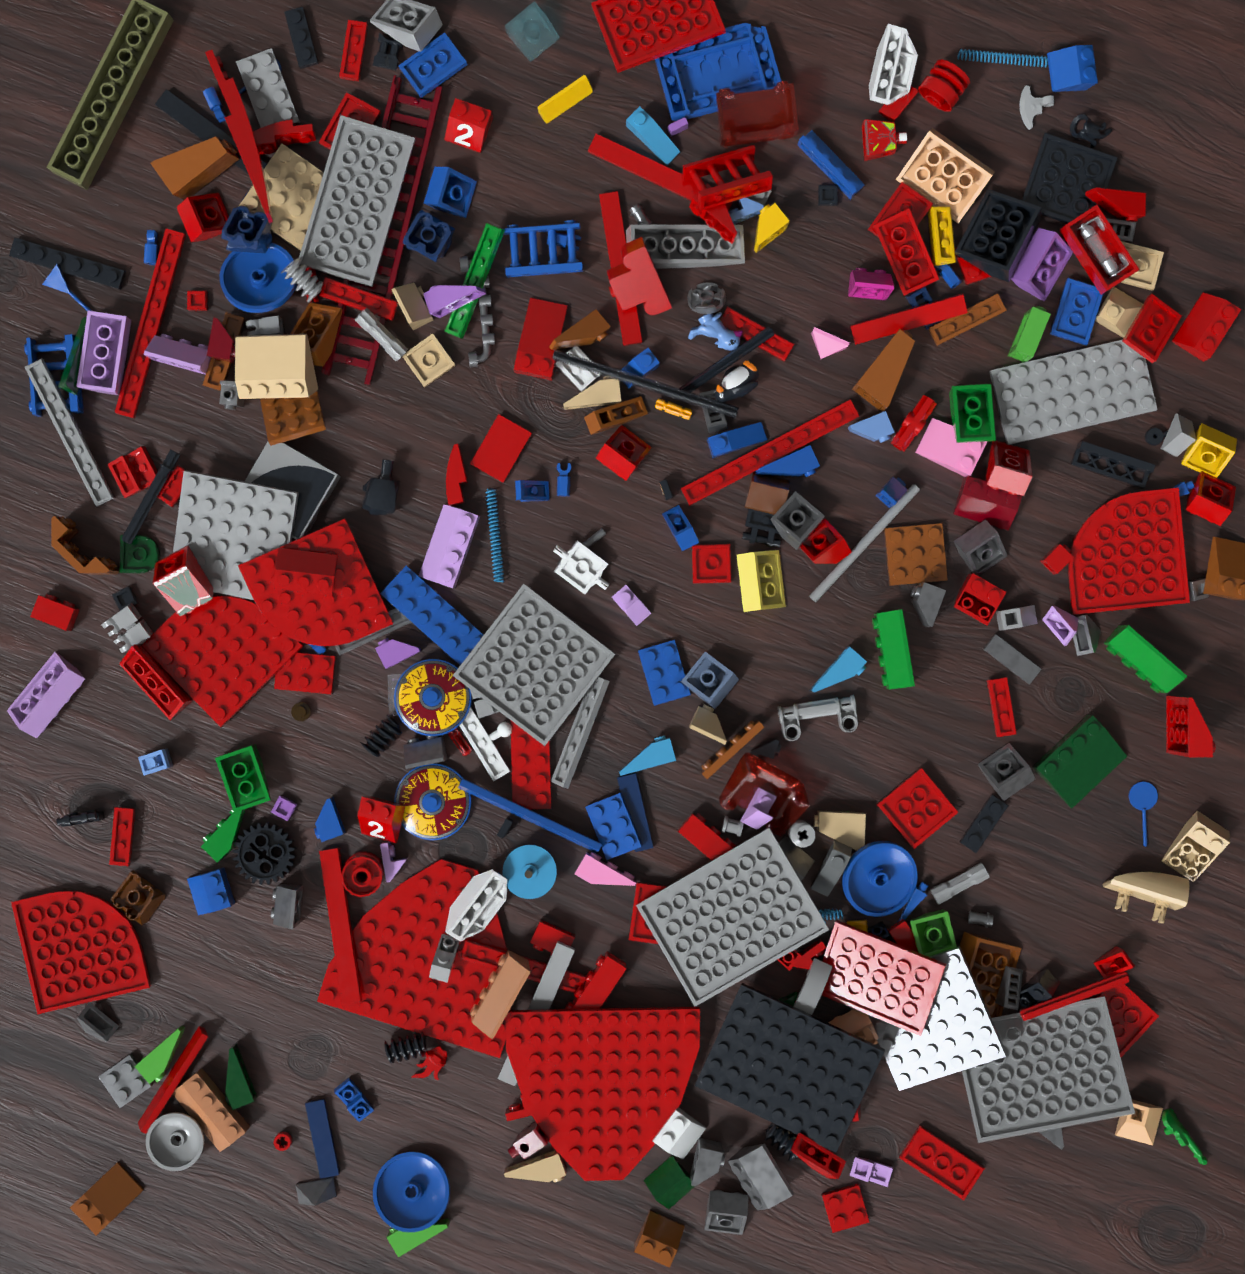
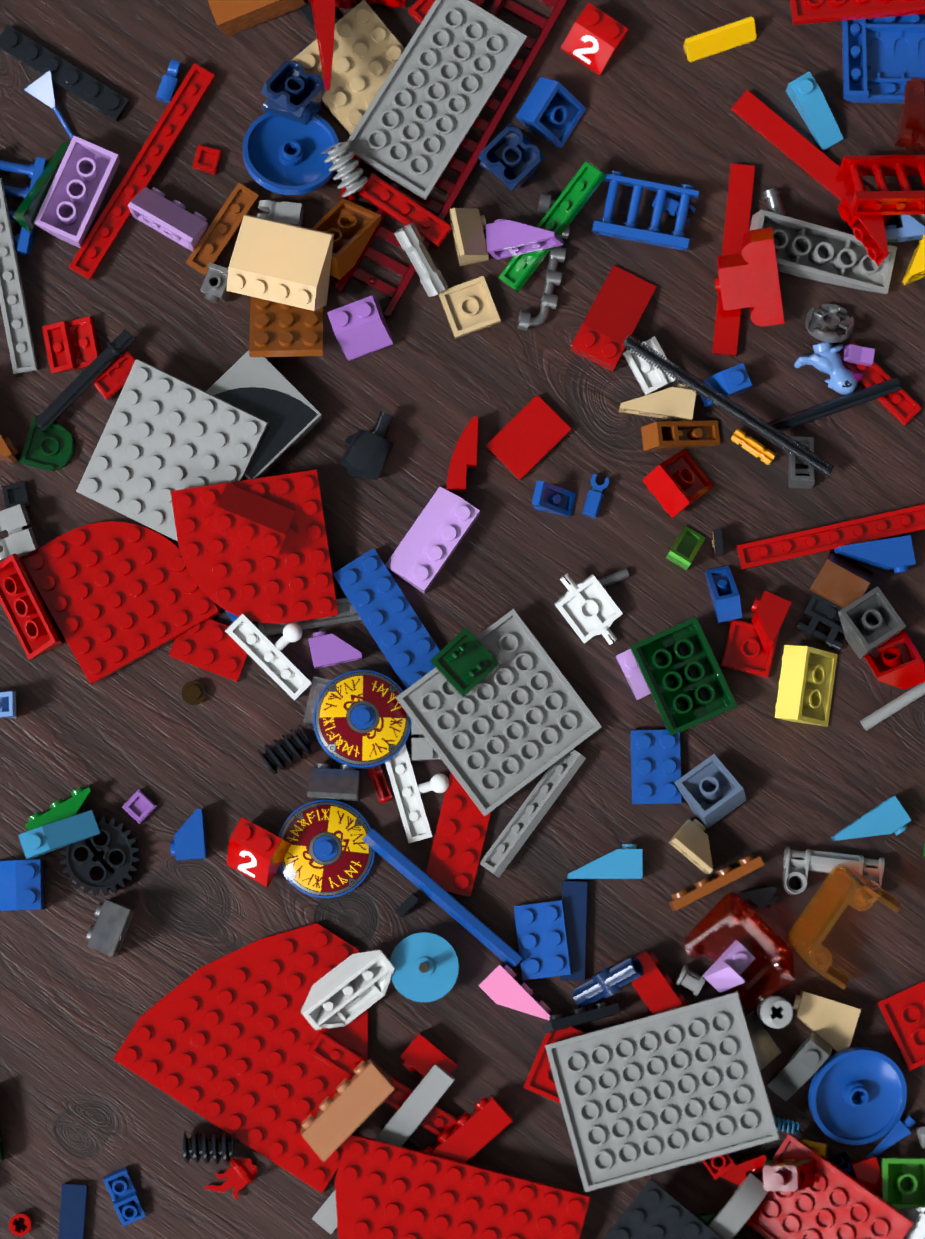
camera: 15 degrees right, 5 degrees down
(182, 581) = (96, 493): slope -> none
(203, 216) = (243, 61): red slope -> none
(221, 343) = (223, 219): dark red slope -> none
(227, 847) = (59, 834): none -> dark azure slope
(244, 777) = (102, 754): green slope -> none
(340, 926) = (169, 972): red tile -> none
(349, 399) = (360, 327): none -> medium lavender slope
(349, 668) = (269, 655): none -> white plate
(362, 885) = (210, 928): red wheel -> none
(391, 866) = (252, 915): lavender slope -> none
(444, 958) = (288, 1046): light grey slope -> none
(493, 538) = (490, 529): dark azure piece -> none
(497, 635) = (464, 662): none -> dark green plate
(584, 332) = (668, 324): dark orange slope -> none
(642, 500) = (685, 547): none -> bright green slope
(656, 876) = (581, 1016): none -> black plate
(665, 600) = (683, 676): none -> dark green slope
(670, 845) = (608, 981): none -> dark blue piece
(677, 127) = (848, 108): medium lavender tile -> none
(719, 537) = (768, 617): none -> red slope
(735, 317) = (858, 355): none -> medium lavender piece
(736, 439) = (820, 504): blue slope -> none
(737, 382) = (841, 435): animal -> none
(825, 730) = (838, 890): none -> clear orange windscreen
(839, 956) = (785, 1174): none -> torso

